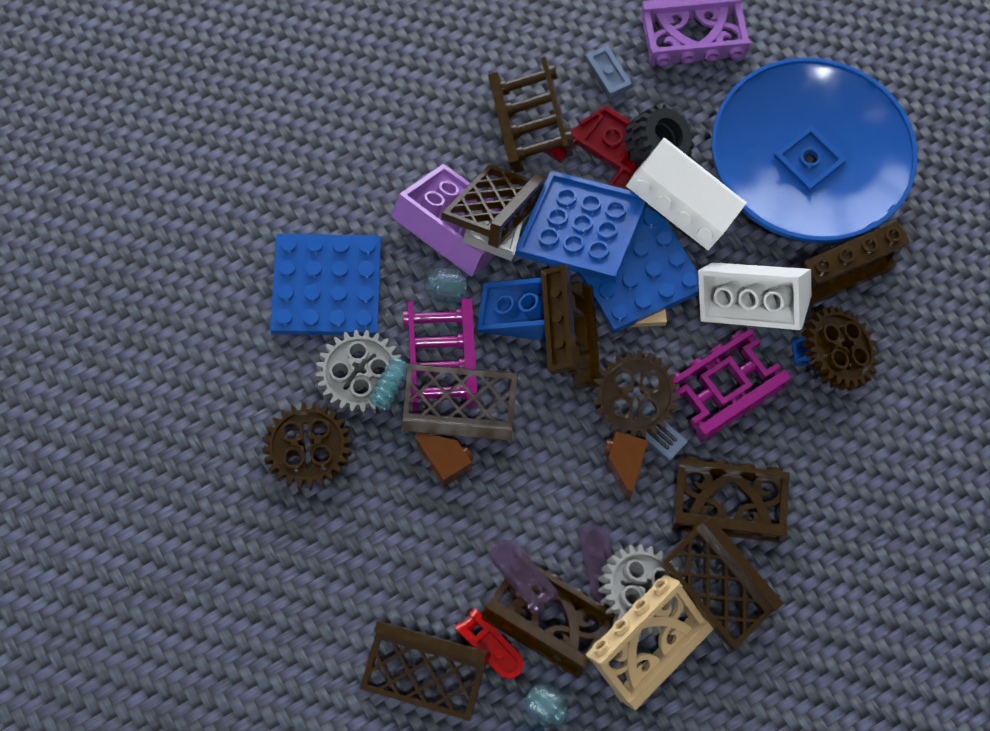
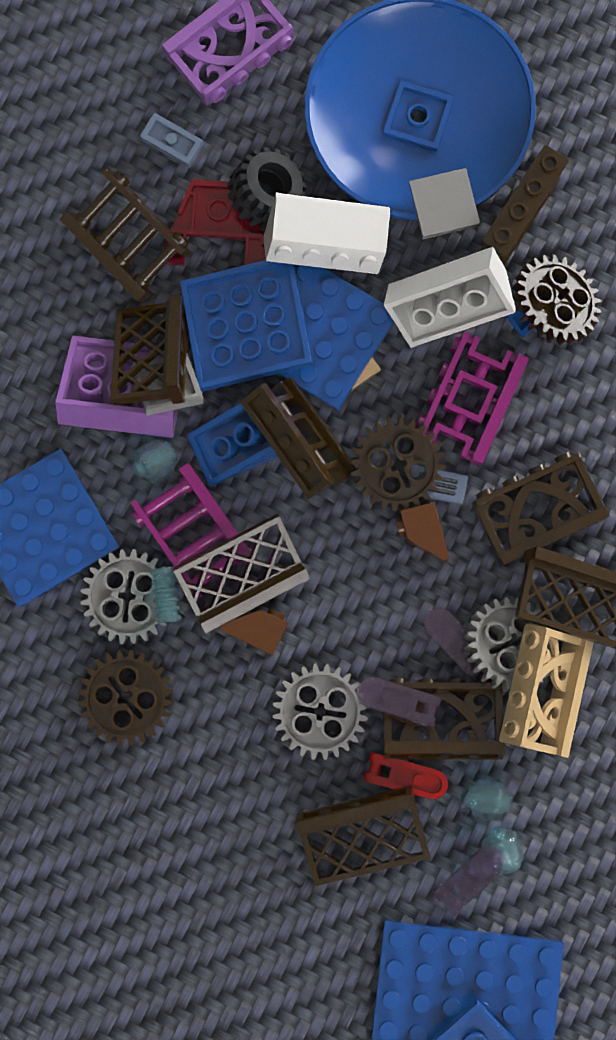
camera: 25 degrees left, 15 degrees up
(436, 567) = (316, 739): none -> light grey gear
(791, 223) = (444, 203): none -> light grey tile

